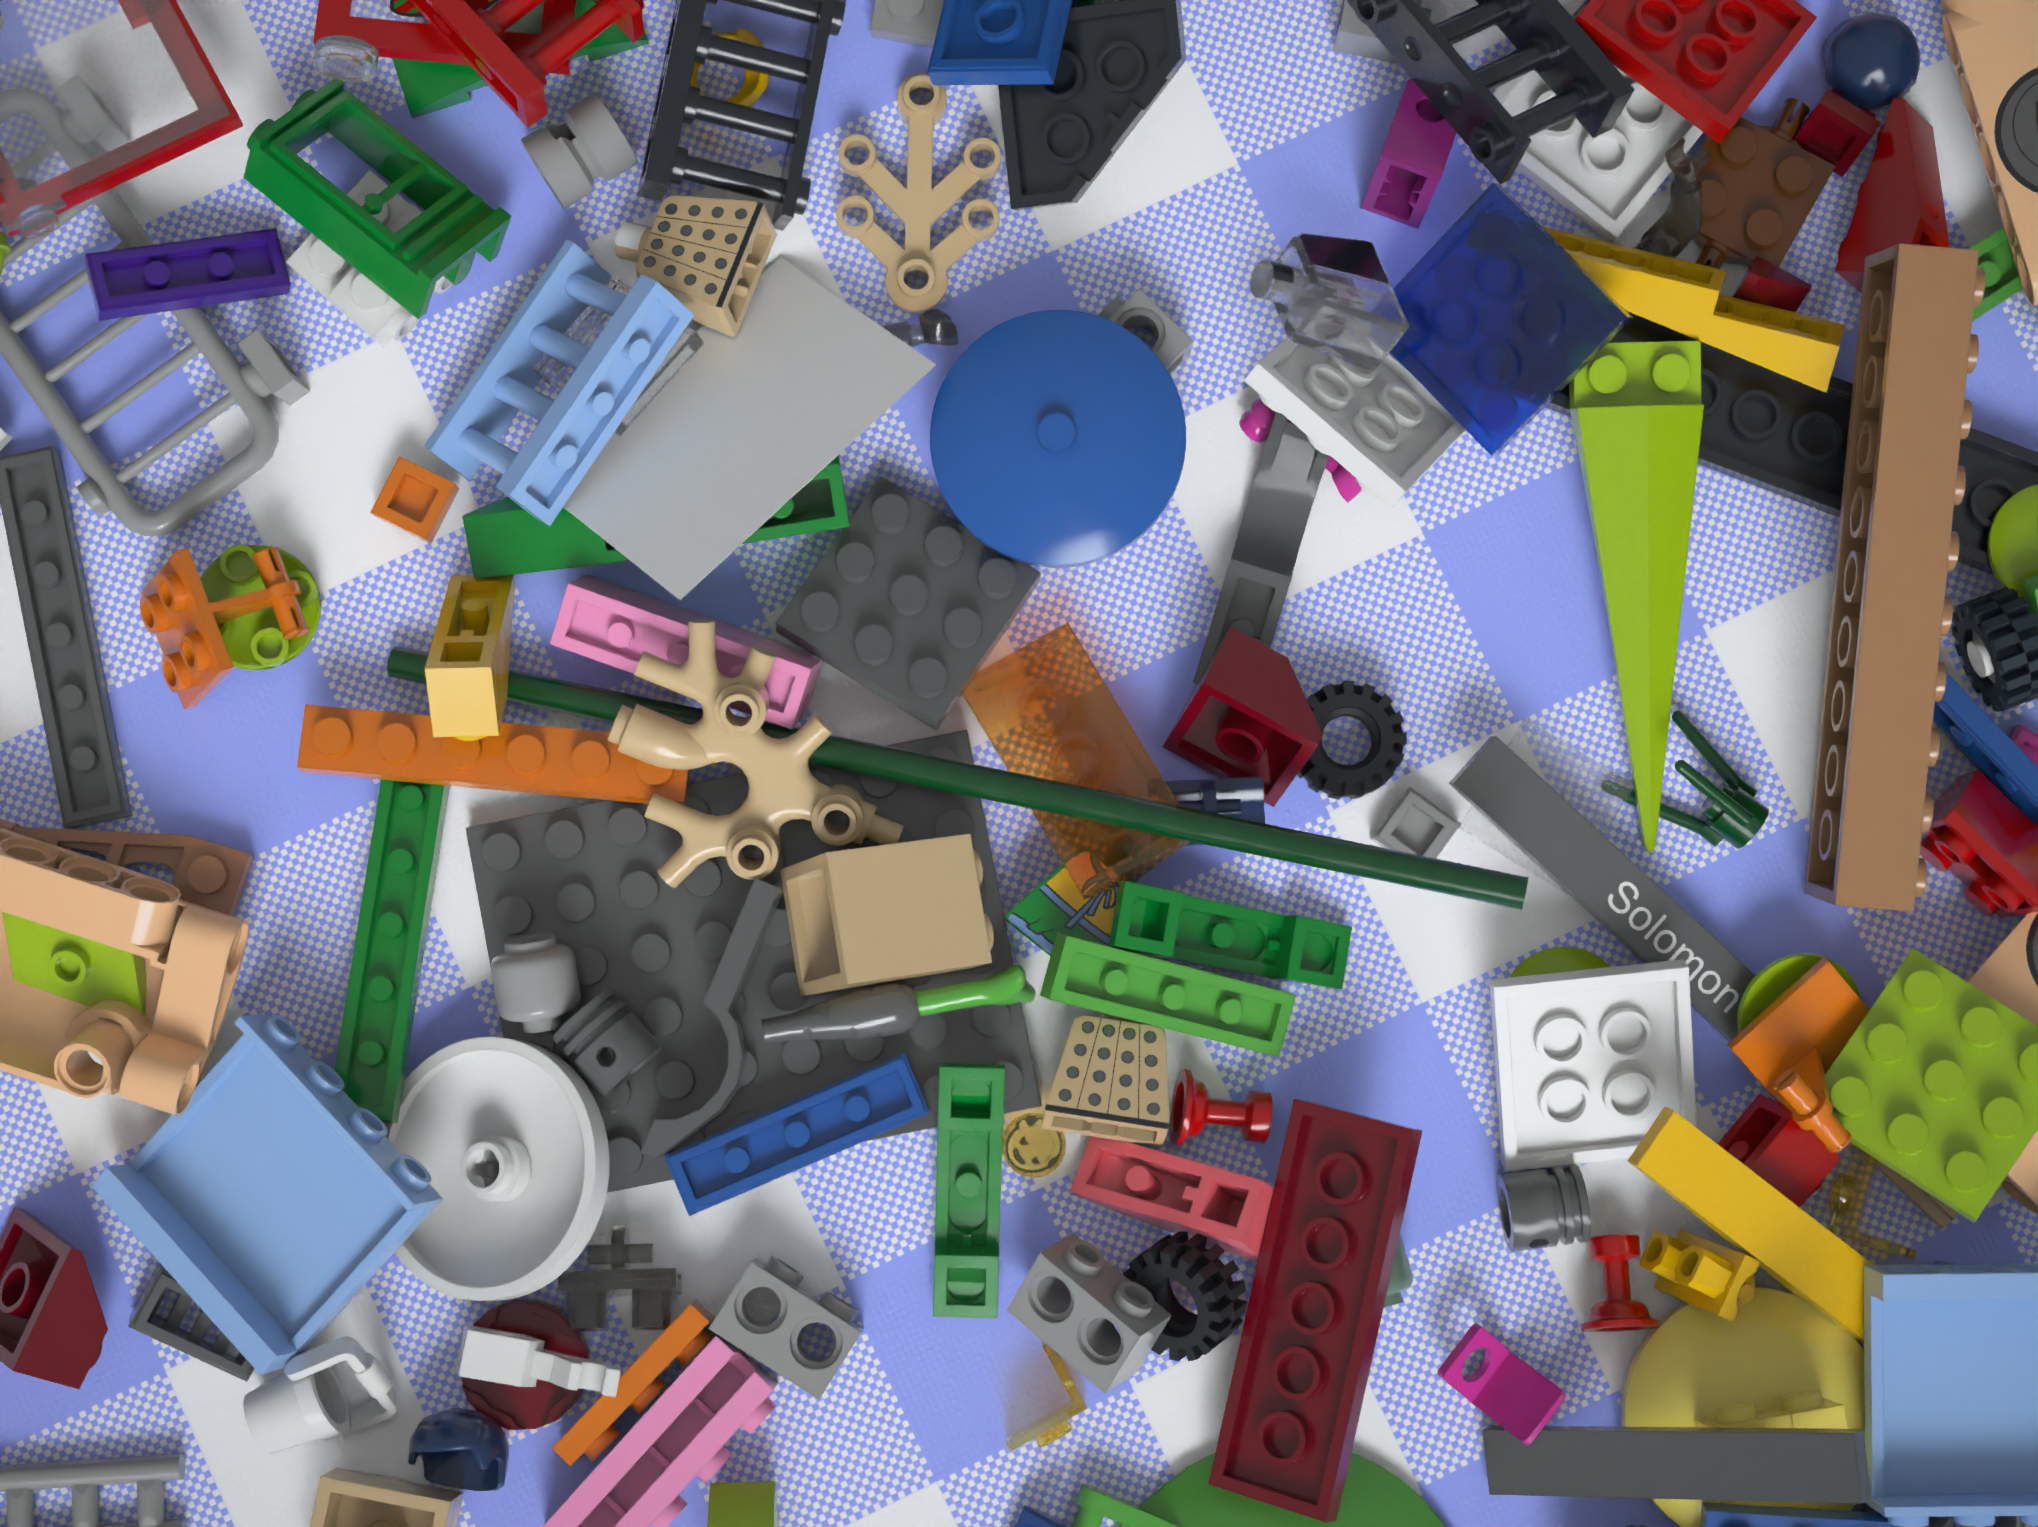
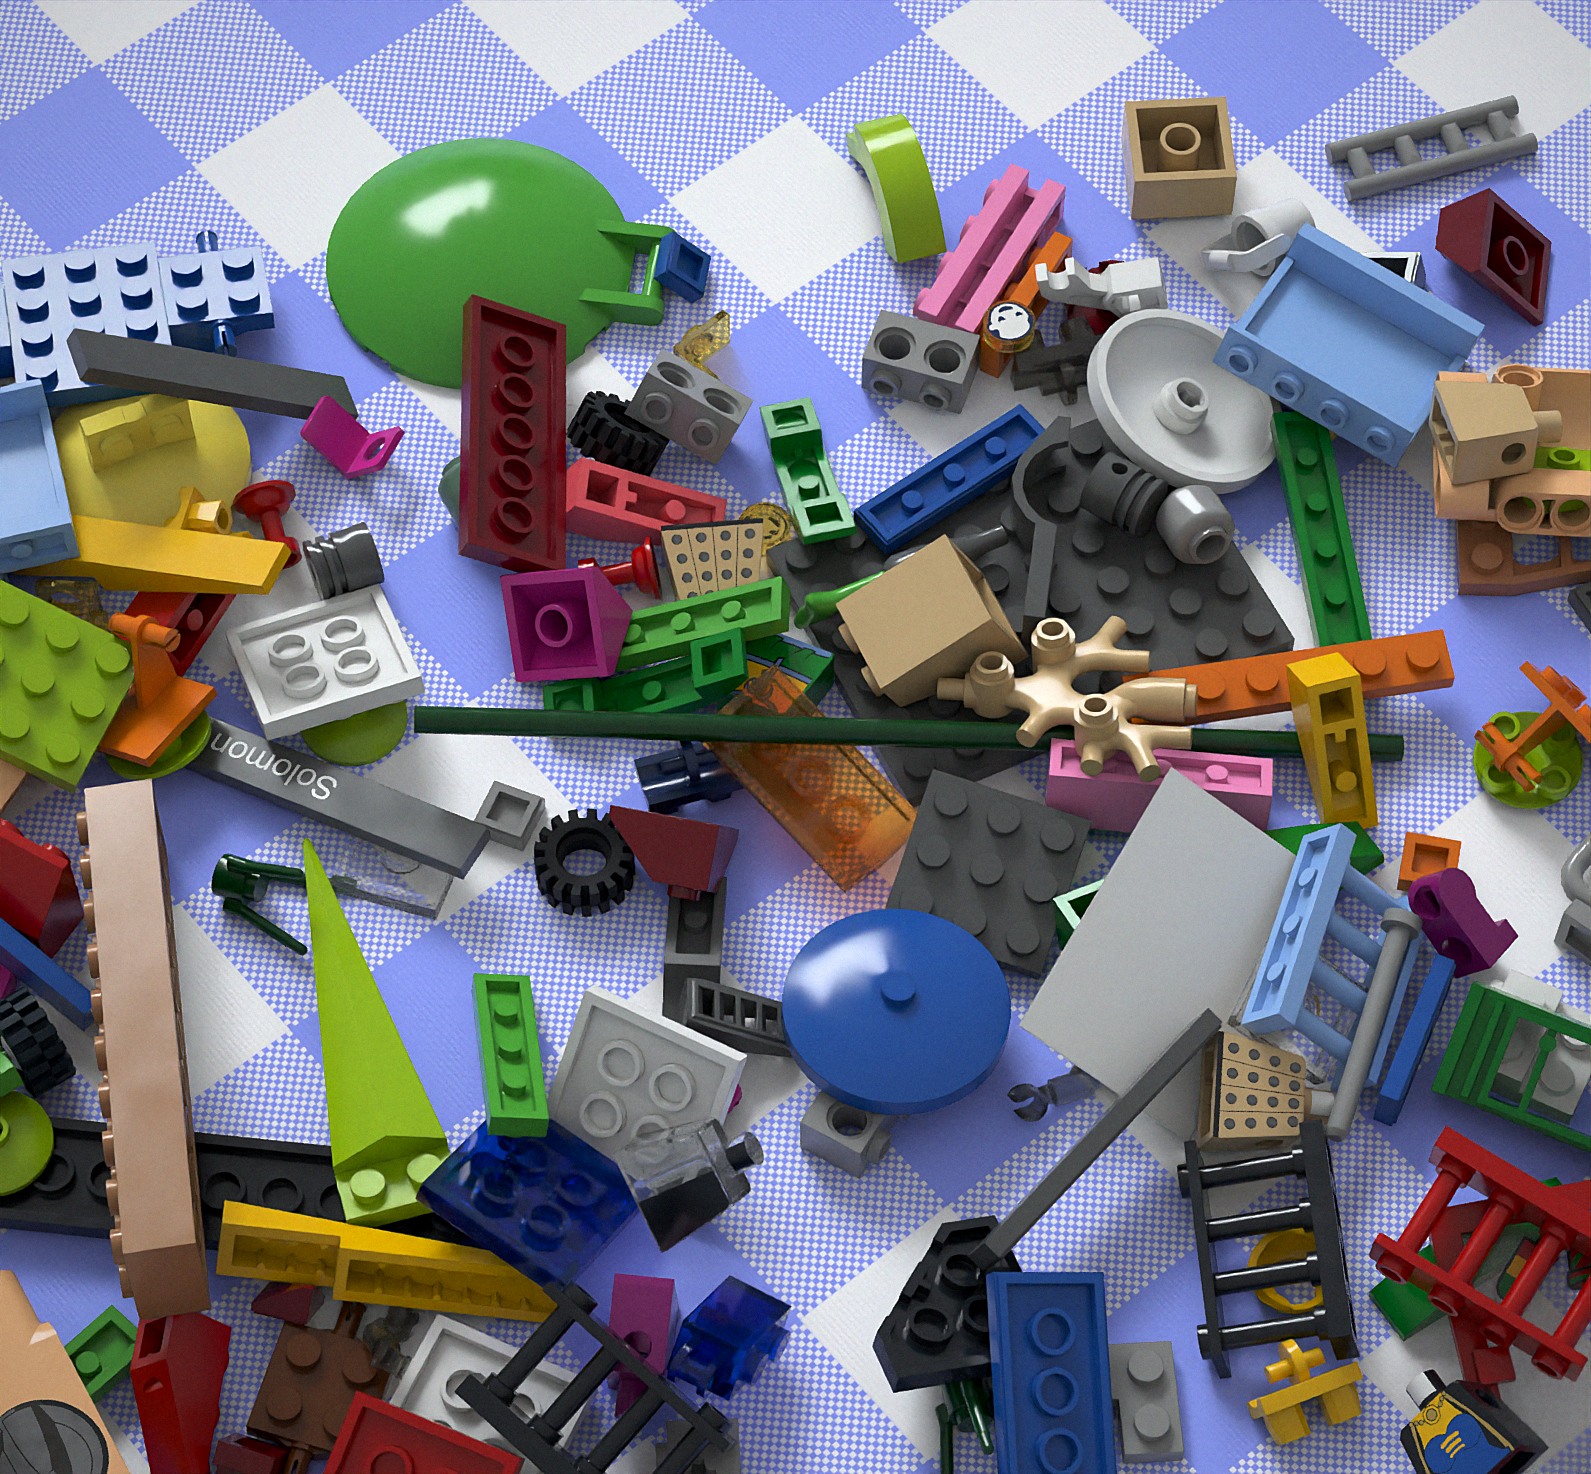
camera: 170 degrees right, 25 degrees down
(149, 997) = (1488, 429): none -> tan torso
(411, 398) = (1458, 921): none -> magenta leg
(461, 1450) = (1141, 236): dark blue hair -> none
(481, 397) = (1400, 927): none -> light grey bar
(503, 293) = (1415, 1040): none -> blue tile
(579, 150) = (1389, 1168): light grey wheel -> none
(672, 1323) = (1009, 326): none -> tile
(887, 228) = (1095, 1140): none -> dark grey tile
(918, 204) = (1081, 1206): tan plant -> none
(1275, 508) = (713, 998): none -> dark grey slope
(1307, 1033) = (564, 623): none -> dark pink slope
(1332, 107) = (729, 1339): none -> clear blue brick
(1488, 494) = (509, 1055): none -> bright green plate

